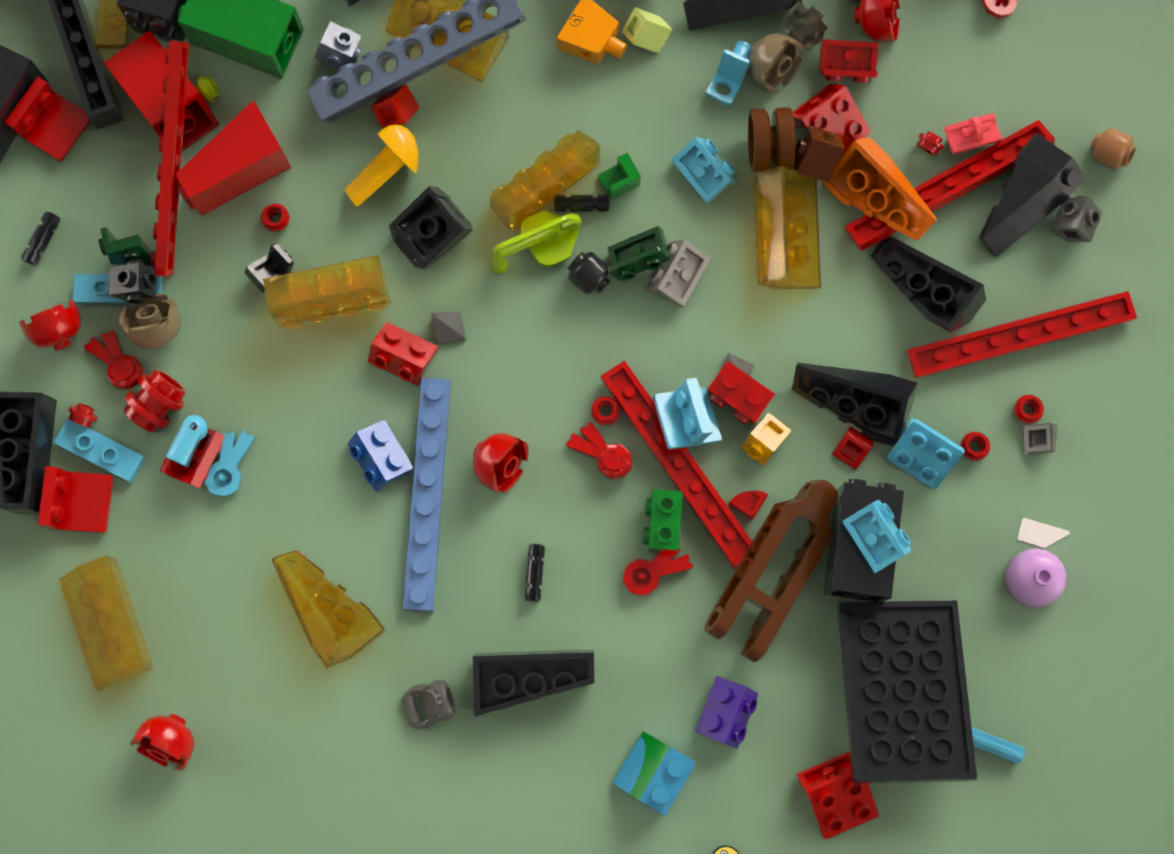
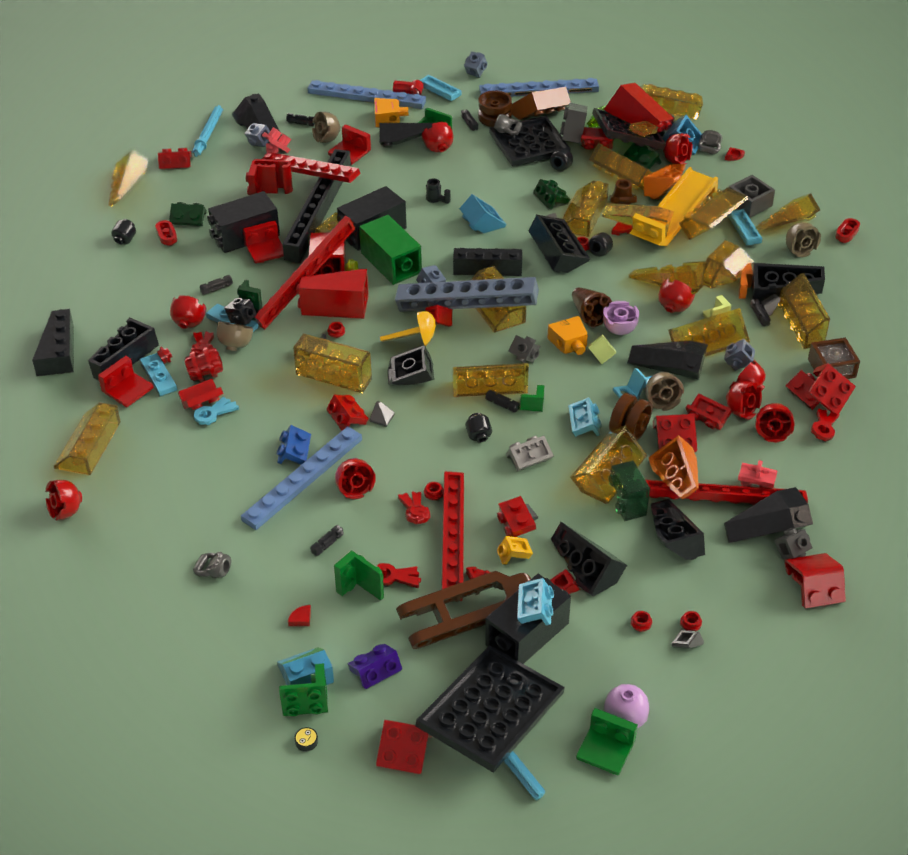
camera: 35 degrees right, 35 degrees down
(187, 440) = (203, 384): medium azure piece -> none
(329, 618) = (199, 497): clear yellow wedge -> none
(520, 677) = (277, 577): black wedge -> none
(547, 237) = (468, 399): lime piece -> none
(553, 98) = (524, 349): none -> dark grey brick
(591, 703) = (300, 616): none -> red tile
(612, 618) = (355, 570): none -> green bracket
(638, 254) = (511, 431): dark green bracket -> none
(665, 520) = (418, 548): green bracket -> none
(687, 416) = (476, 512): medium azure bracket -> none
(700, 798) = (306, 698): none -> green bracket
(805, 25) = (693, 382): clear smoke brick -> none
(818, 153) = (653, 435): reddish brown head -> none
(847, 264) = (630, 489): none -> clear green slope
(925, 453) = (605, 603): medium azure bracket -> none
(930, 143) = (728, 469): red plate -> none
(941, 29) = (774, 422): none -> red cylinder
(1021, 334) = (716, 583): red plate -> none
(1040, 533) = (650, 690): white sticker -> none
(1049, 646) = (607, 742): none -> green bracket
(1113, 148) = (844, 525): medium nougat head -> none
(1130, 251) = (820, 579): none -> red piece

